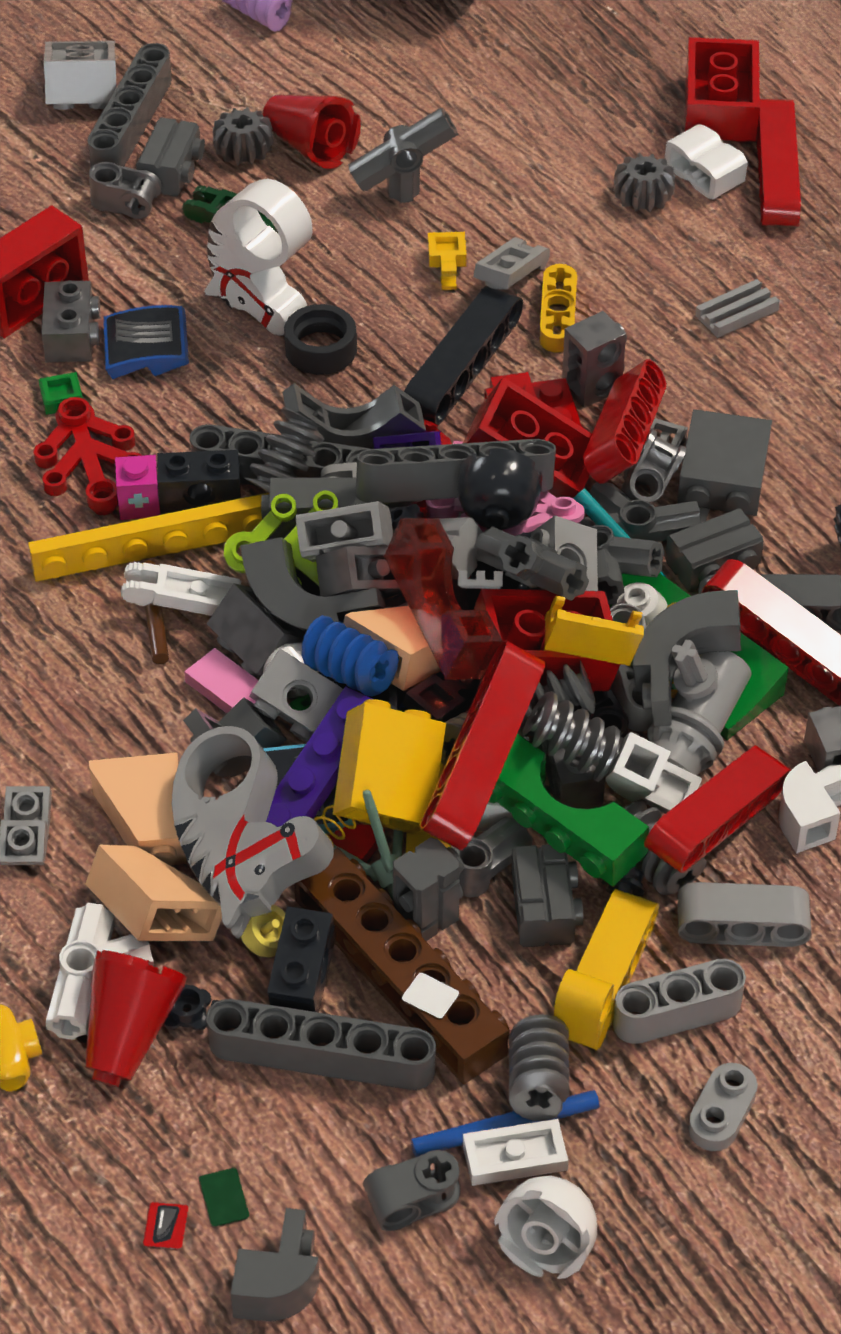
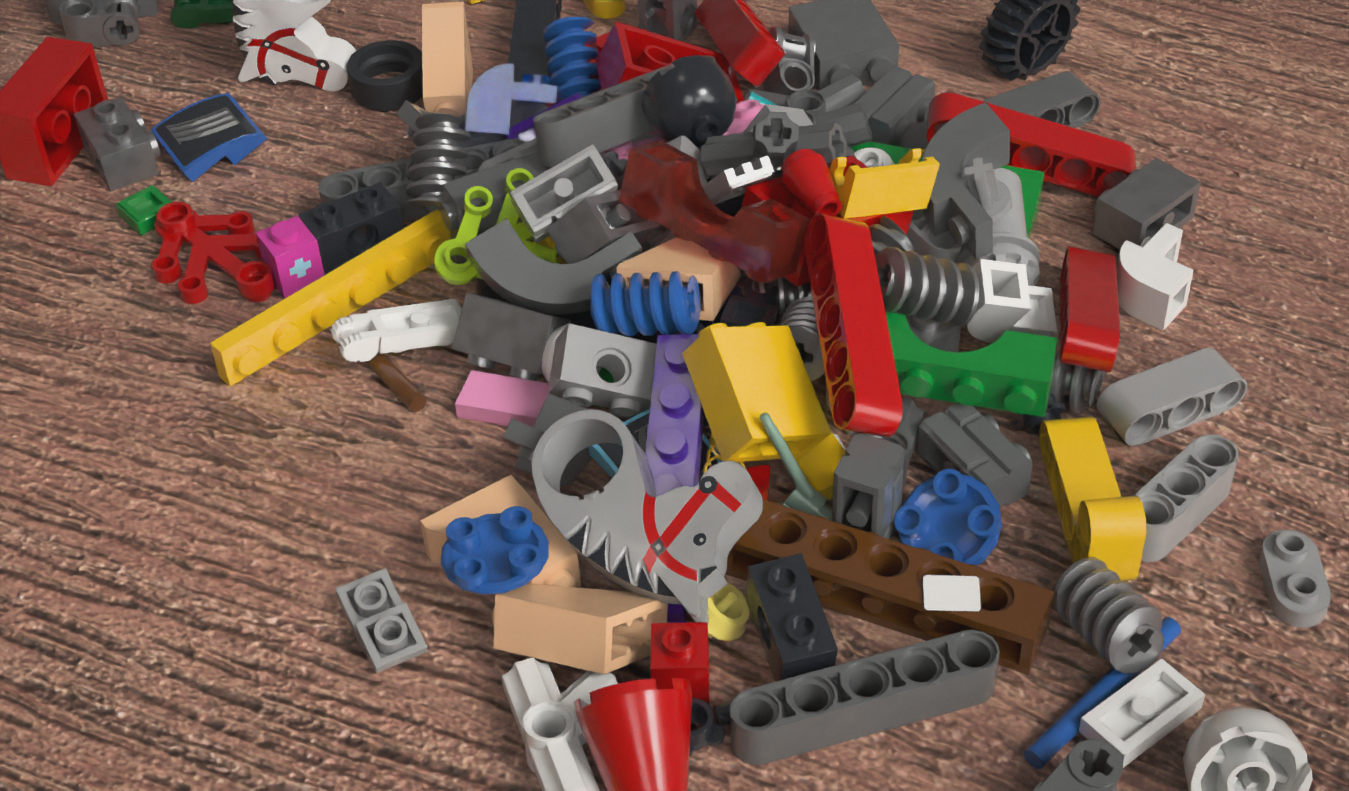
camera: 25 degrees left, 5 degrees down
(119, 810) = (494, 551): none -> blue dish
(206, 957) = (683, 653): none -> red brick
(366, 353) = (446, 58): none -> light nougat slope
(369, 406) = (492, 98): none -> clear blue brick
(465, 393) = (570, 57): none -> blue piece
(483, 939) = (951, 517): none -> blue dish
(530, 608) = (810, 182): none -> red cone

